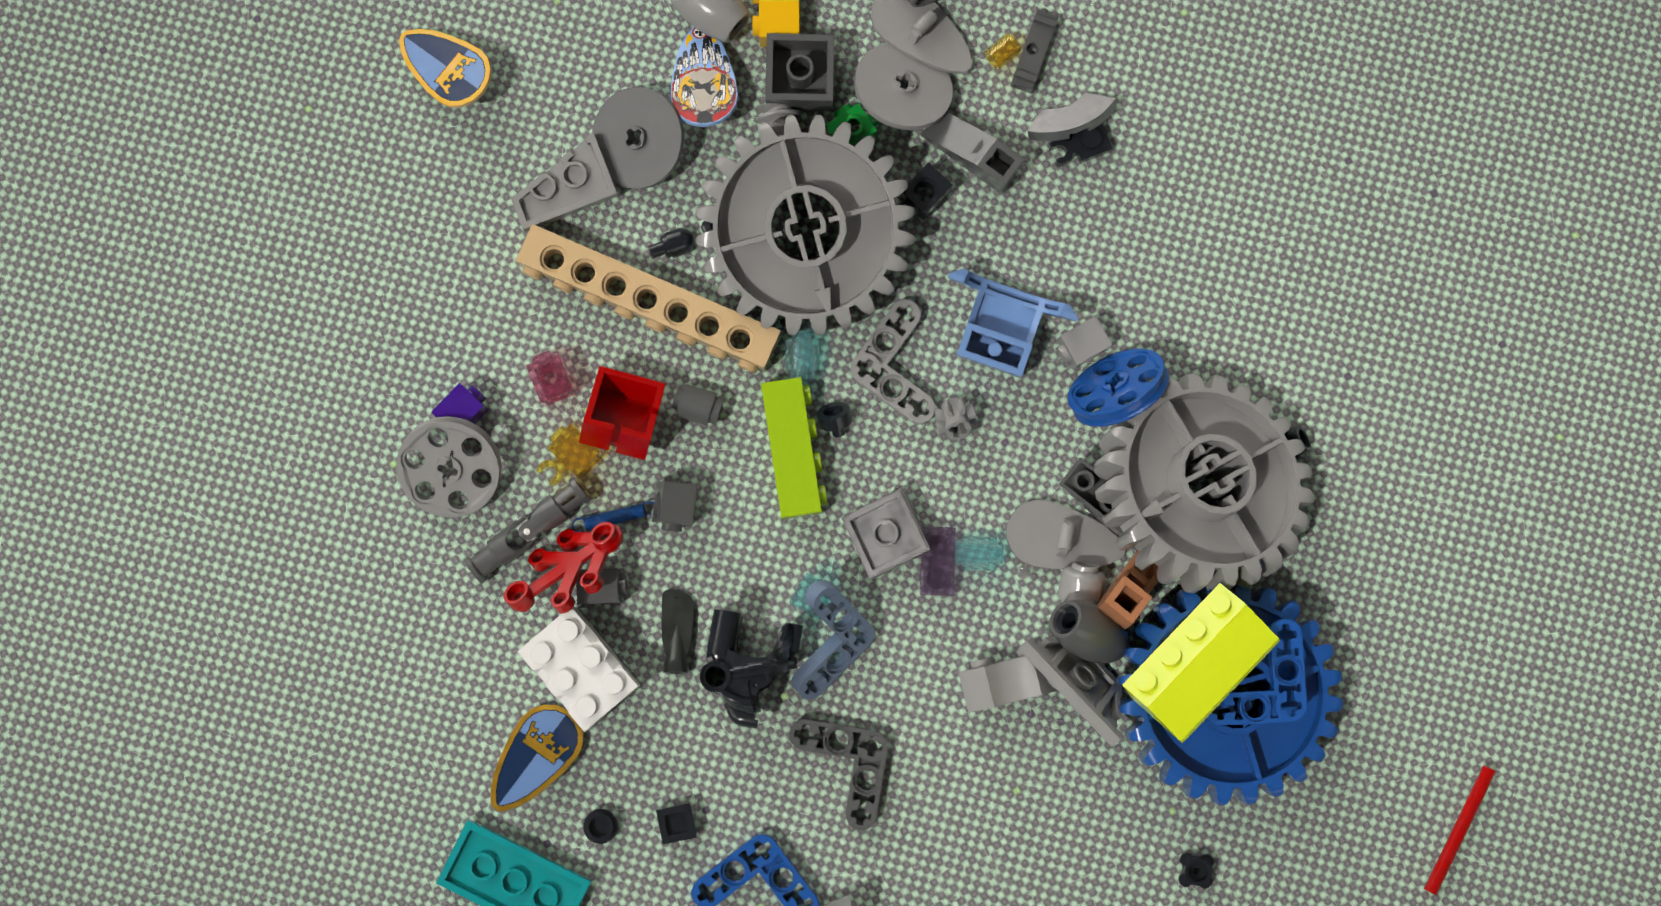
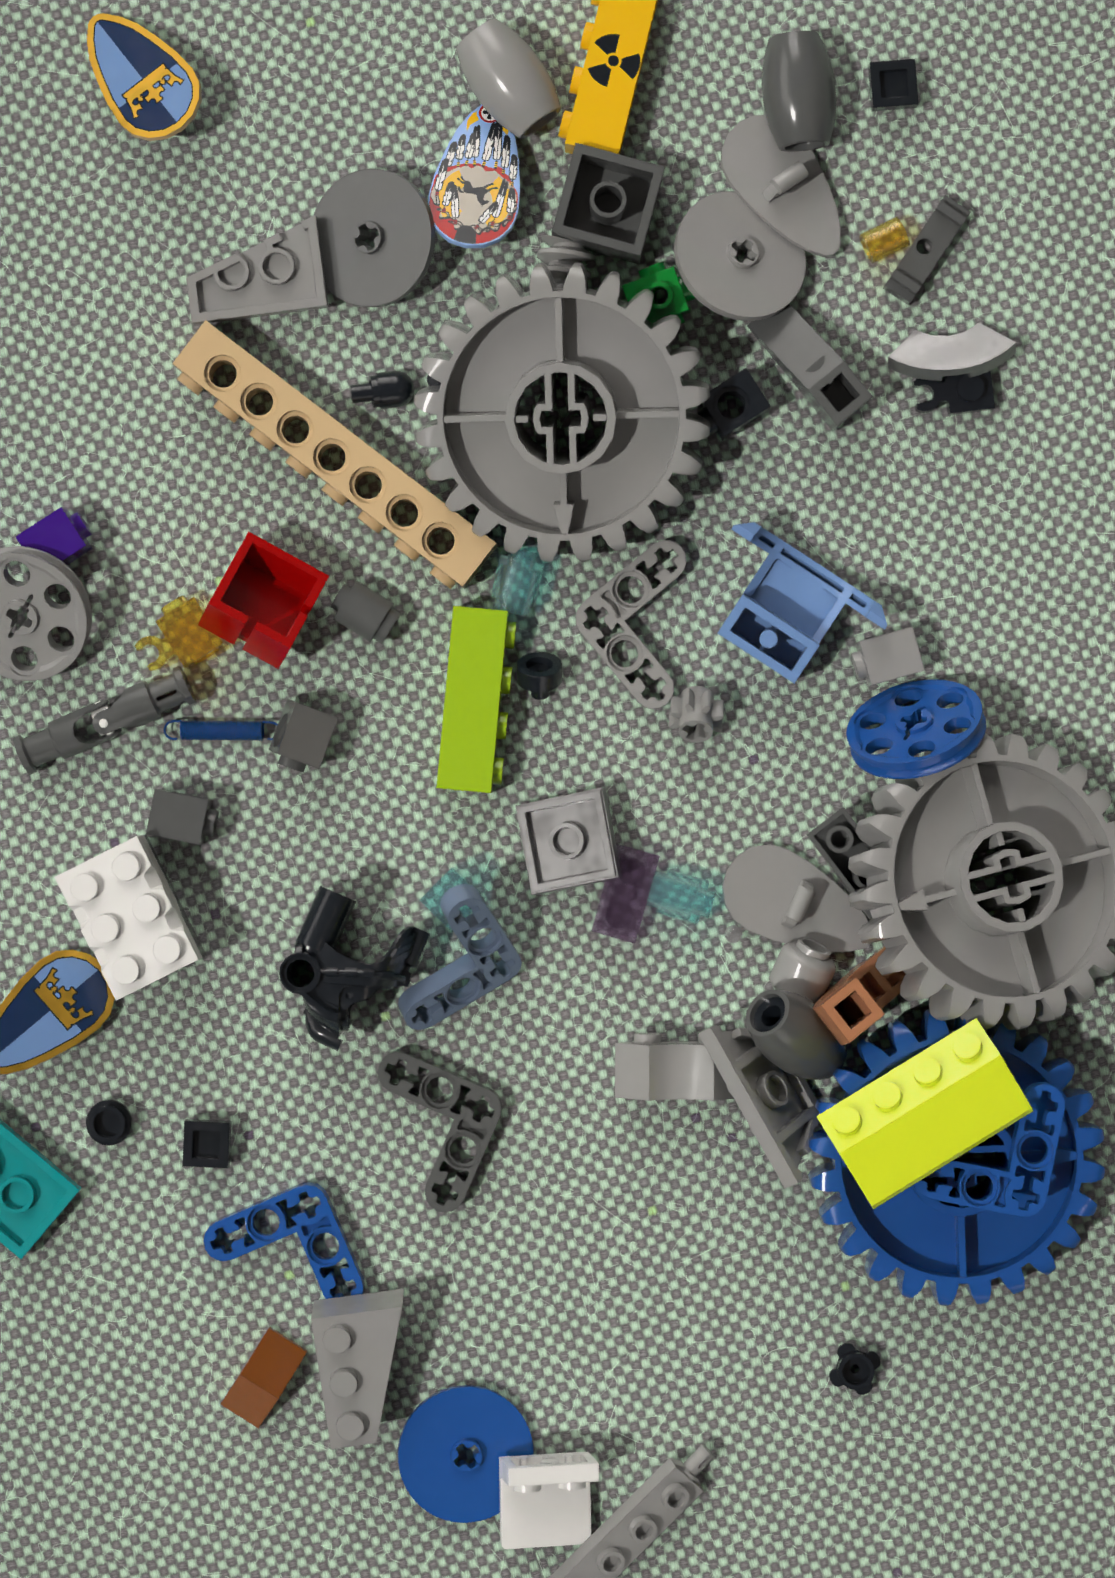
camera: 15 degrees right, 5 degrees up
(541, 366) = (175, 547): clear pink brick -> none
(598, 544) = (194, 762): red plant -> none
(677, 630) = (267, 896): pearl dark grey piece -> none

